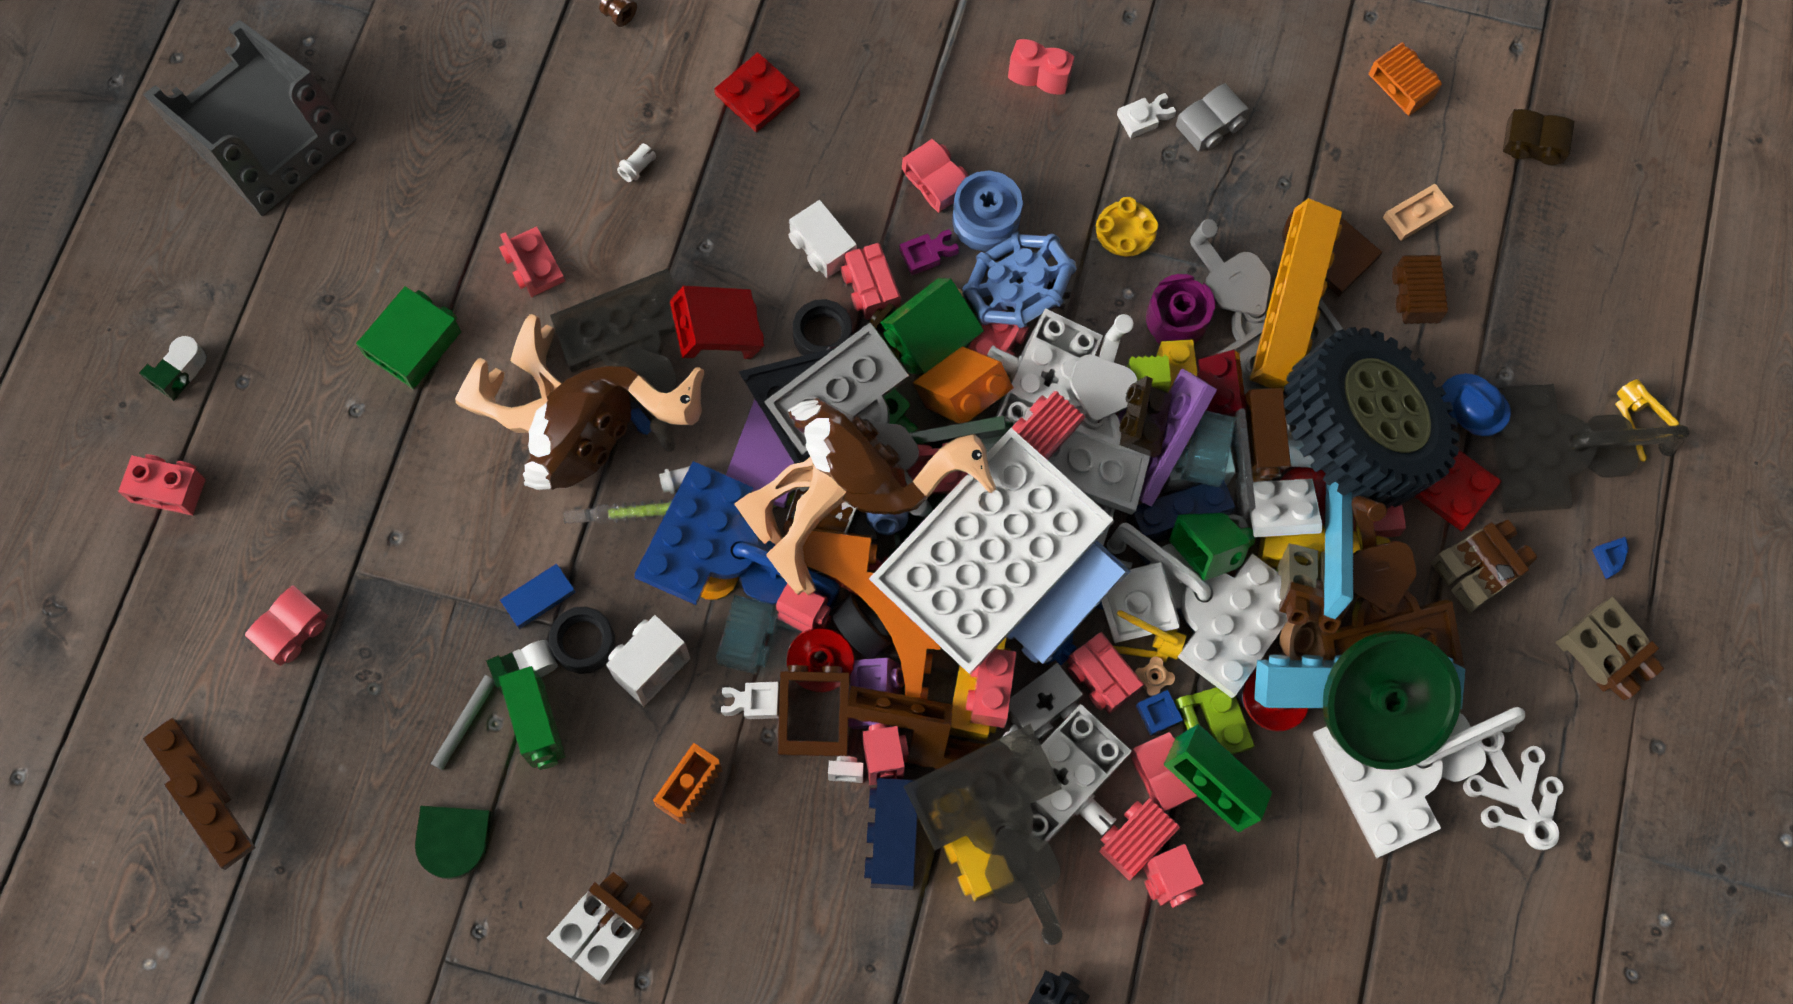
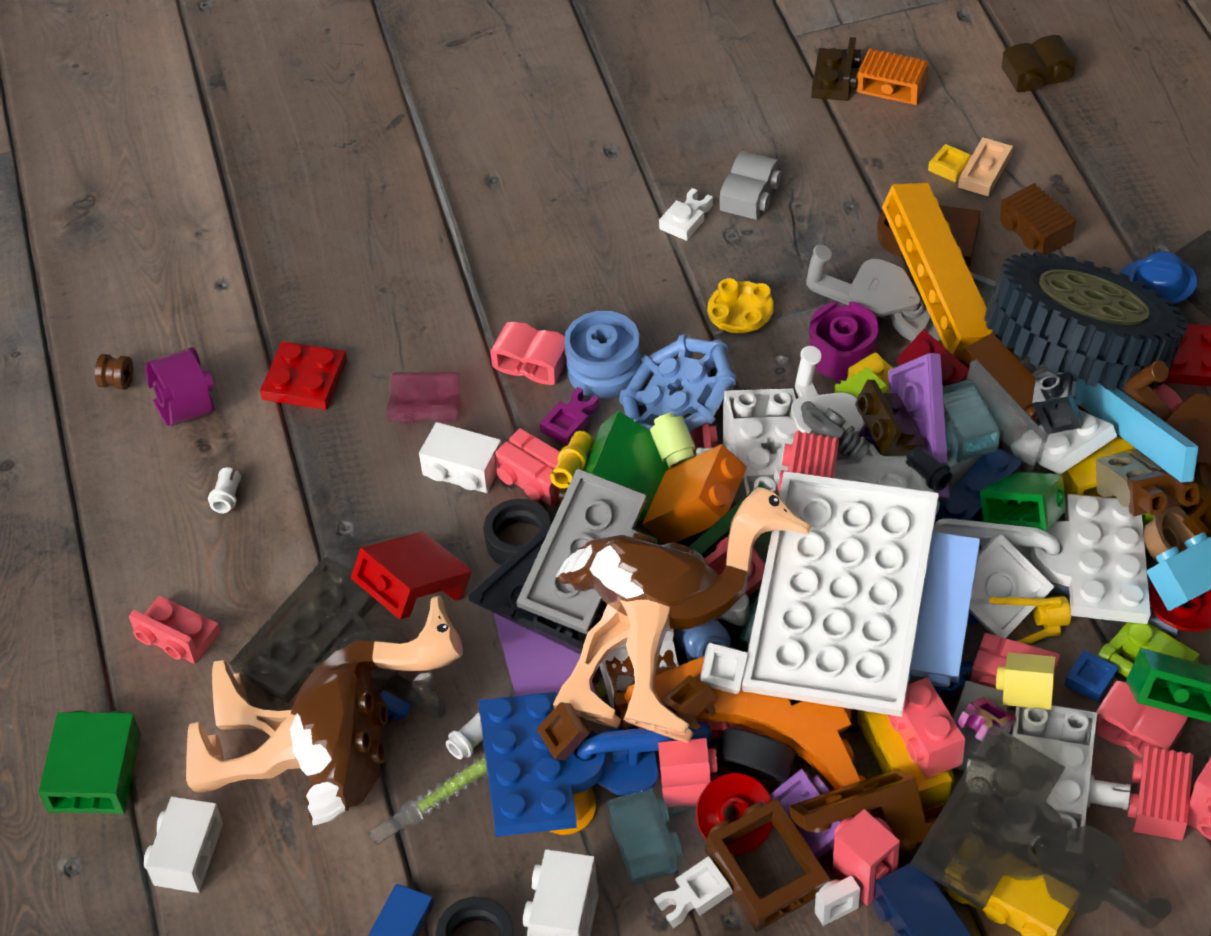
camera: 25 degrees left, 20 degrees down
(433, 442) = (183, 844): none -> white brick
(654, 53) = (180, 387): none -> magenta brick
(728, 530) = (563, 731): none -> reddish brown tile
(822, 568) = (690, 699): none -> reddish brown tile
(829, 169) = (424, 397): none -> clear pink bracket
(864, 557) = (723, 668): none -> white plate
(893, 297) = (571, 458): none -> yellow pin
(979, 326) = (672, 439): none -> yellowish green brick
(1040, 66) = (564, 221): coral brick -> none
(1040, 707) = (982, 715): none -> magenta plate
(1088, 401) = (831, 425): none -> dark grey piece
(1094, 696) = (1027, 680): none -> light yellow brick
(1146, 476) = (935, 473): none -> black pin
(1152, 685) = (1071, 645): light nougat plate -> none
(1287, 477) = (1056, 403): none -> black bracket
(1362, 45) = (836, 72): none -> dark brown bracket
(1393, 189) = (949, 163): none -> yellow tile

